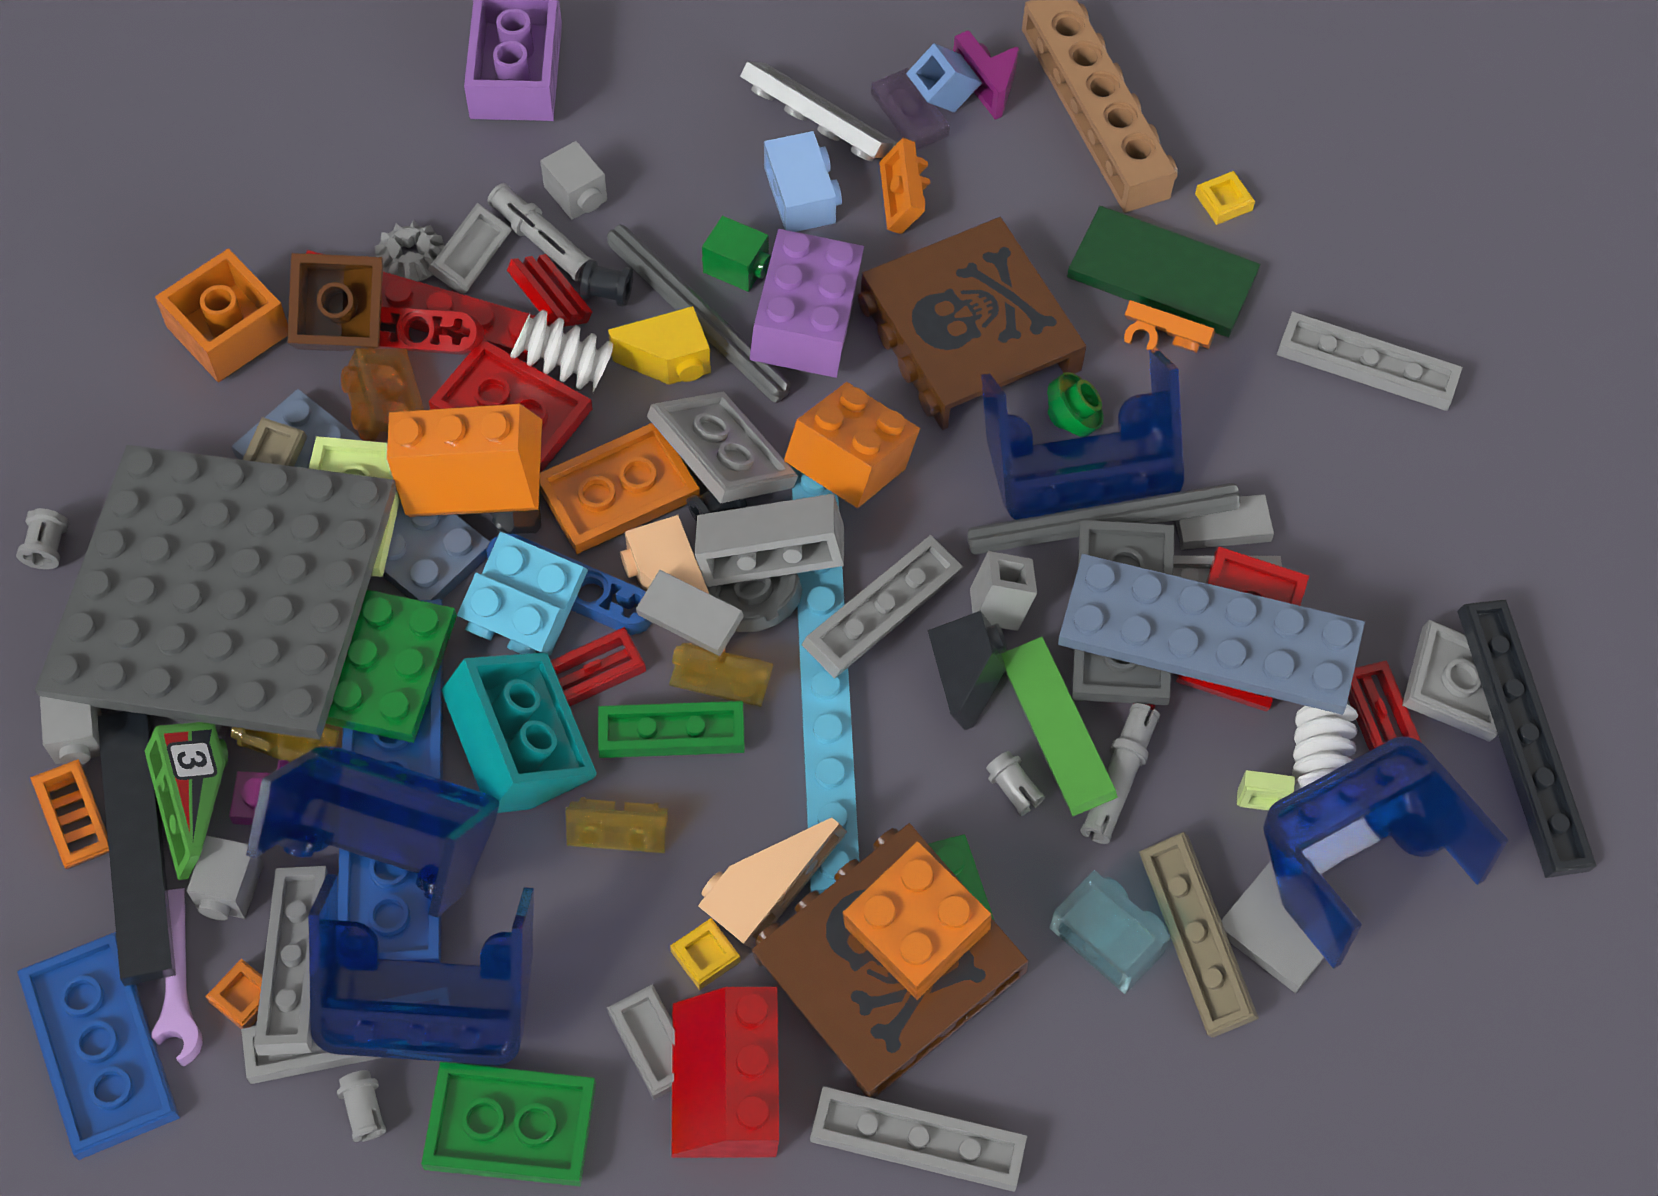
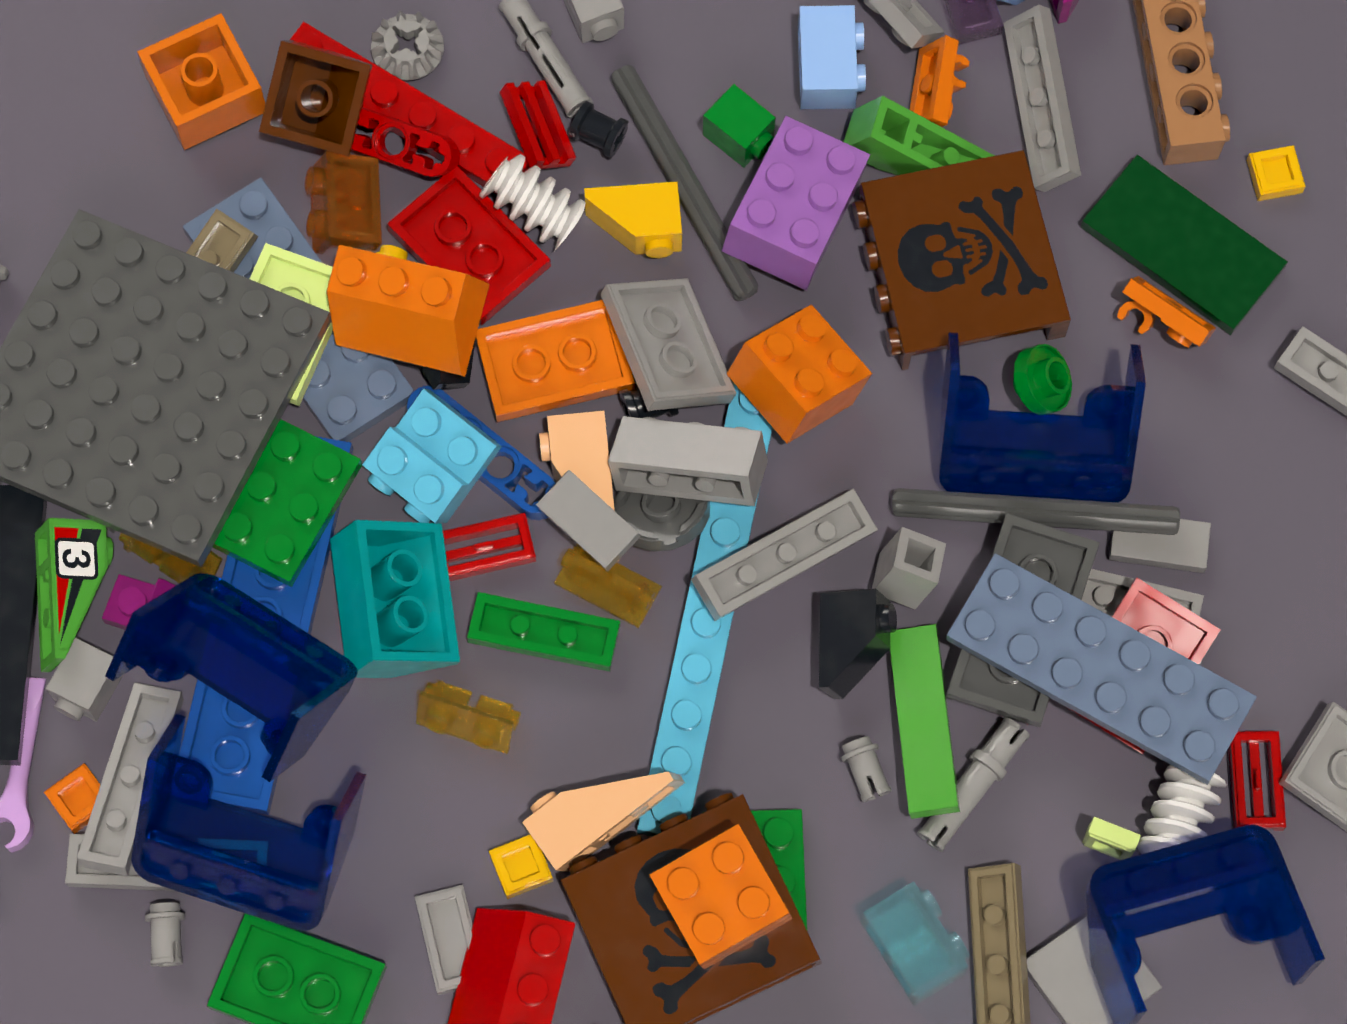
camera: 15 degrees right, 10 degrees up
(469, 249) = (468, 58): light grey tile -> none
(887, 229) = (904, 140): none -> bright green slope
(1001, 175) = (1042, 98): none -> light grey plate

